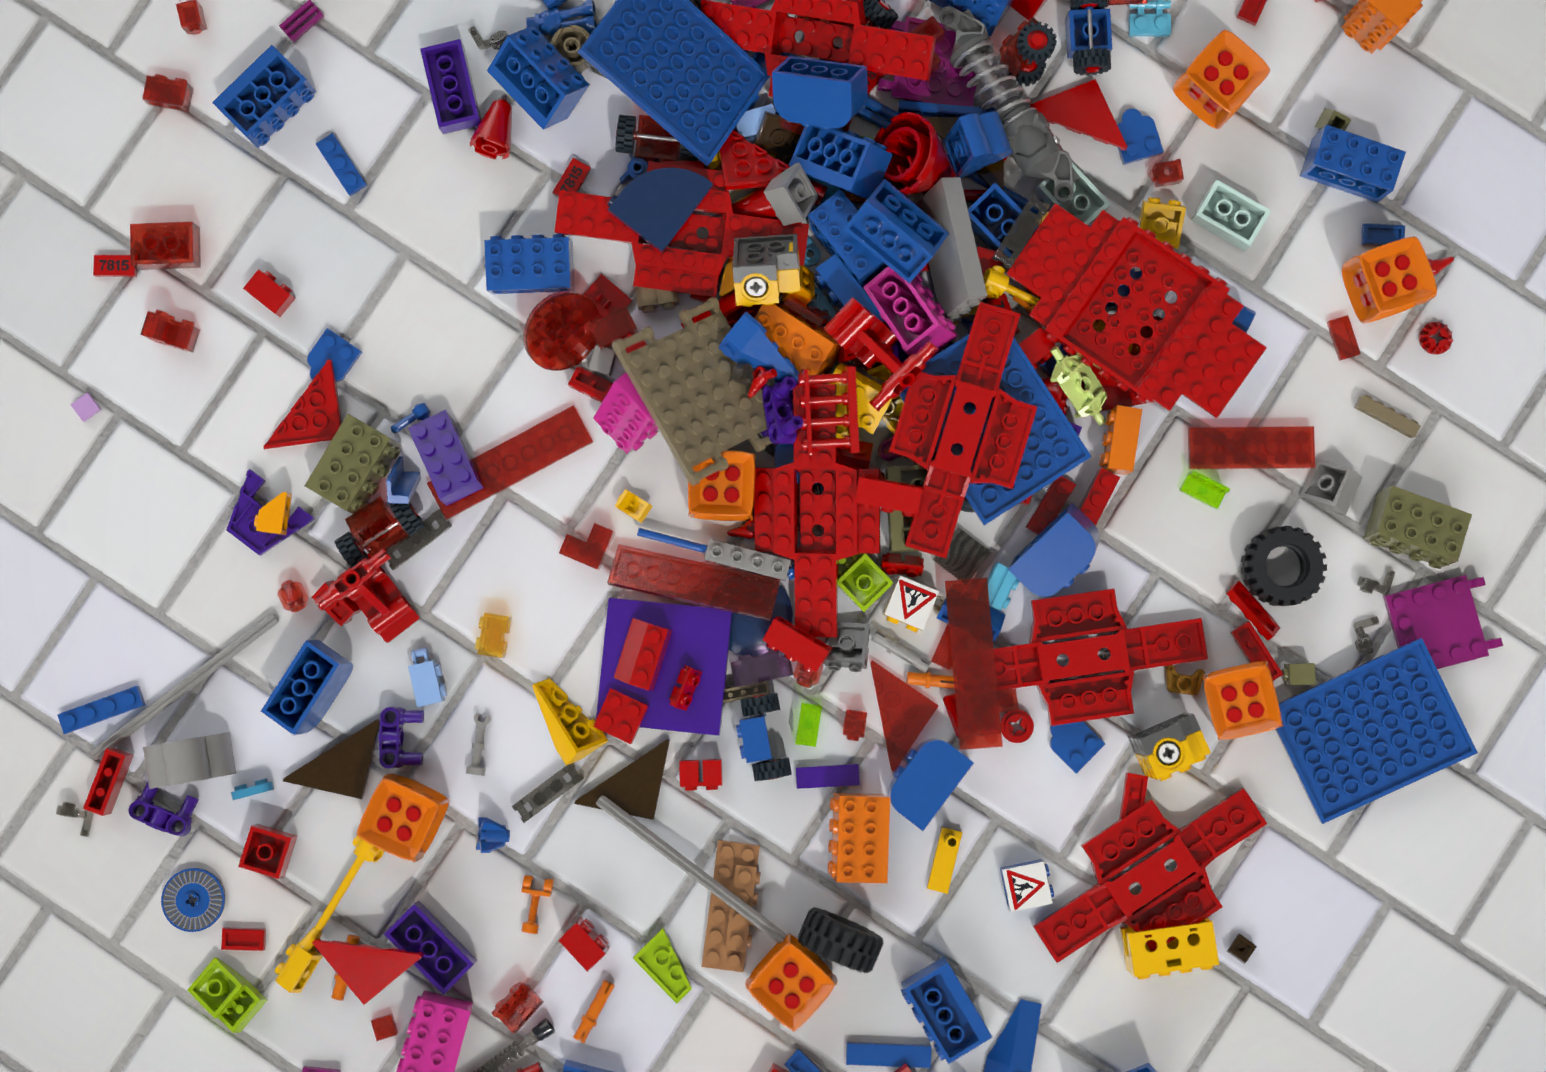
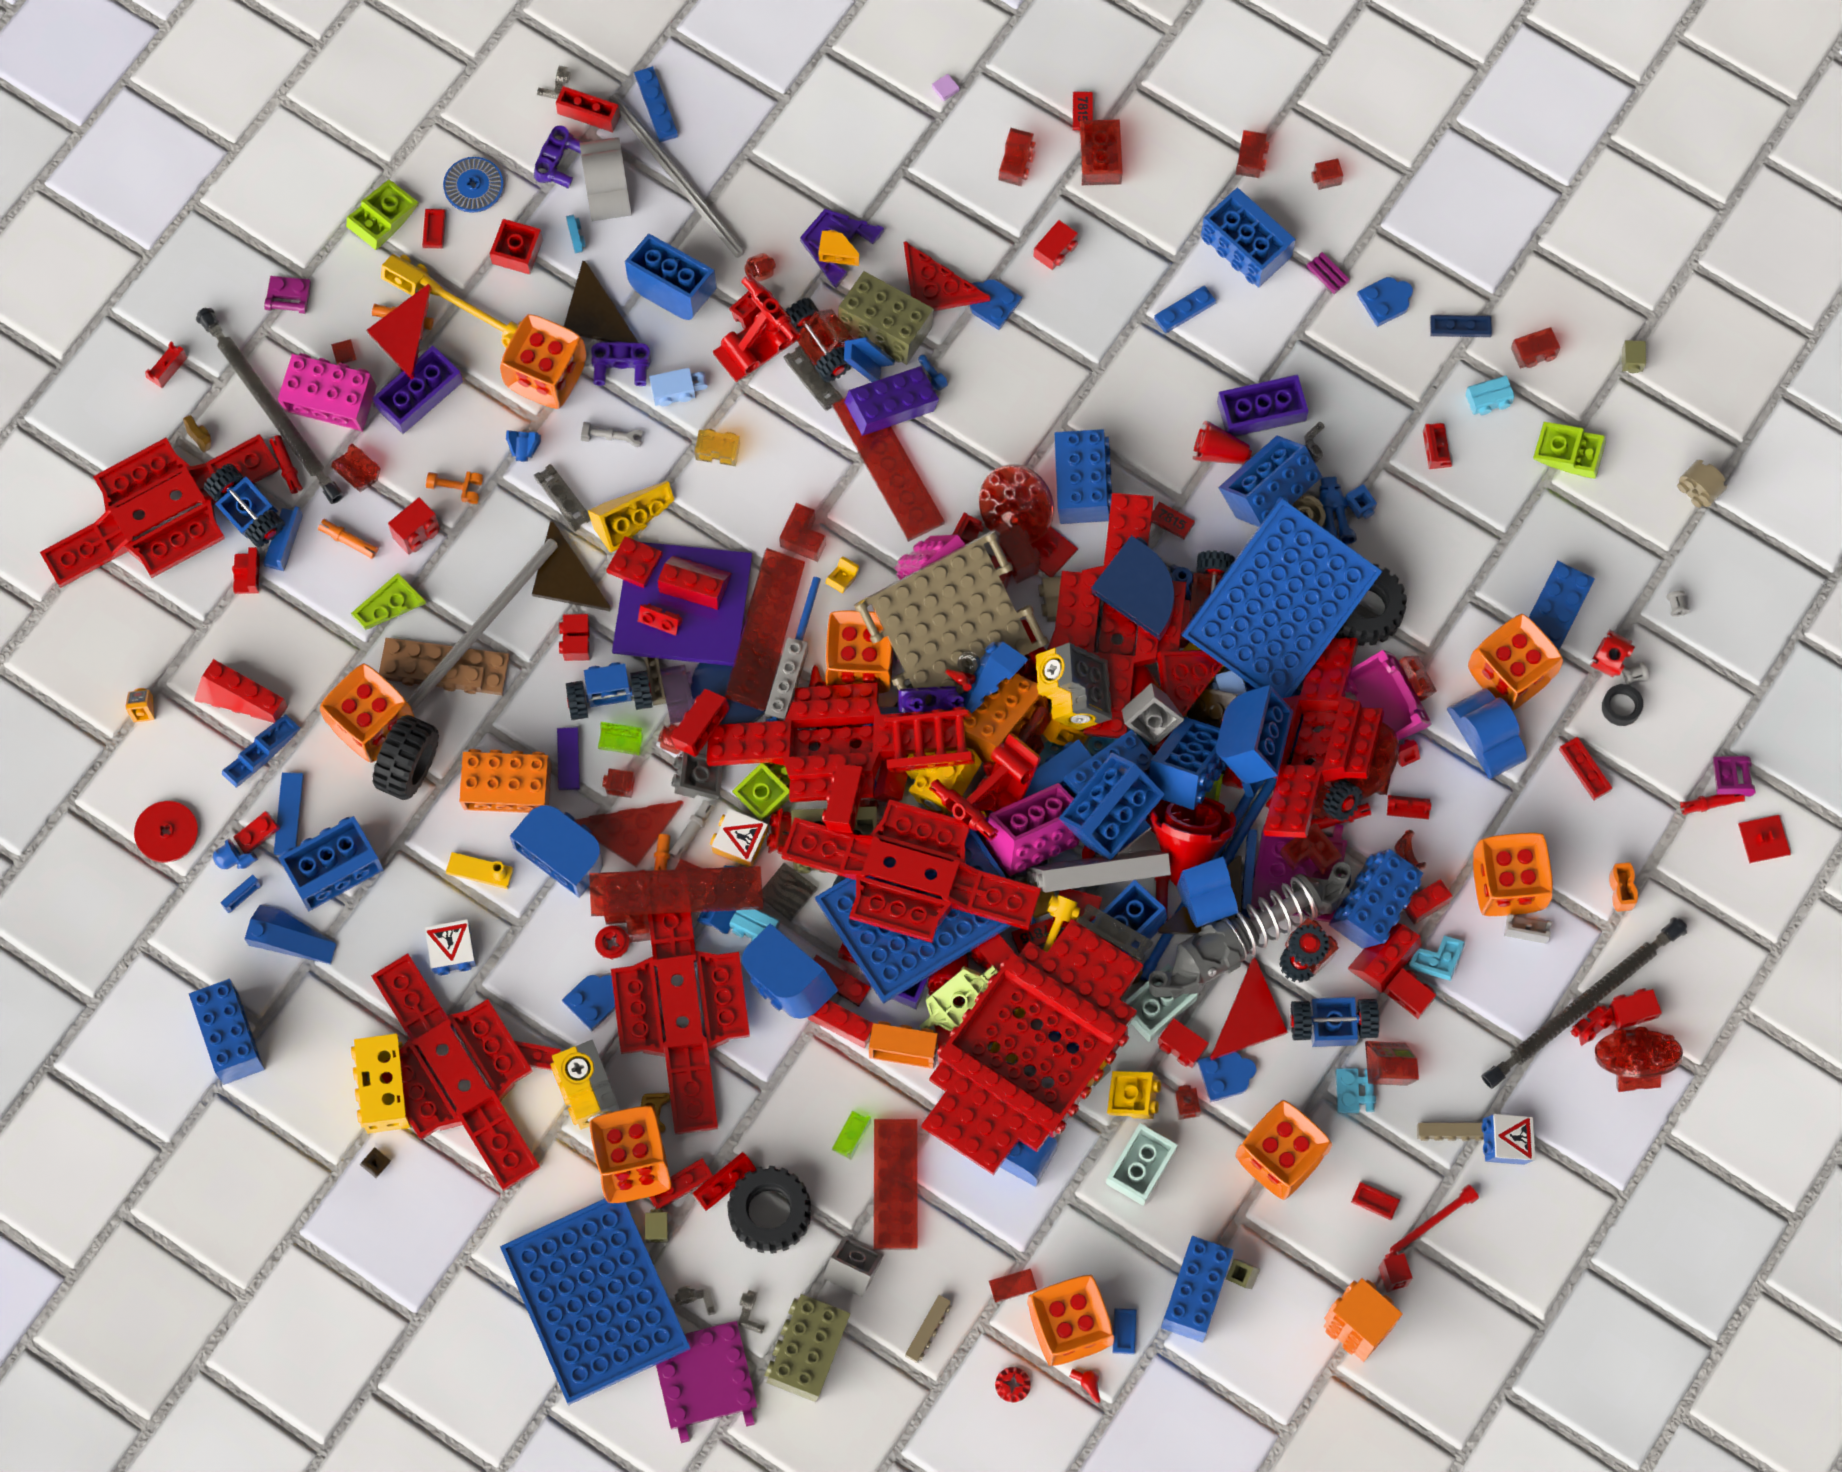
camera: 90 degrees right, 15 degrees down
(1111, 174) = (1182, 1043): none -> red brick

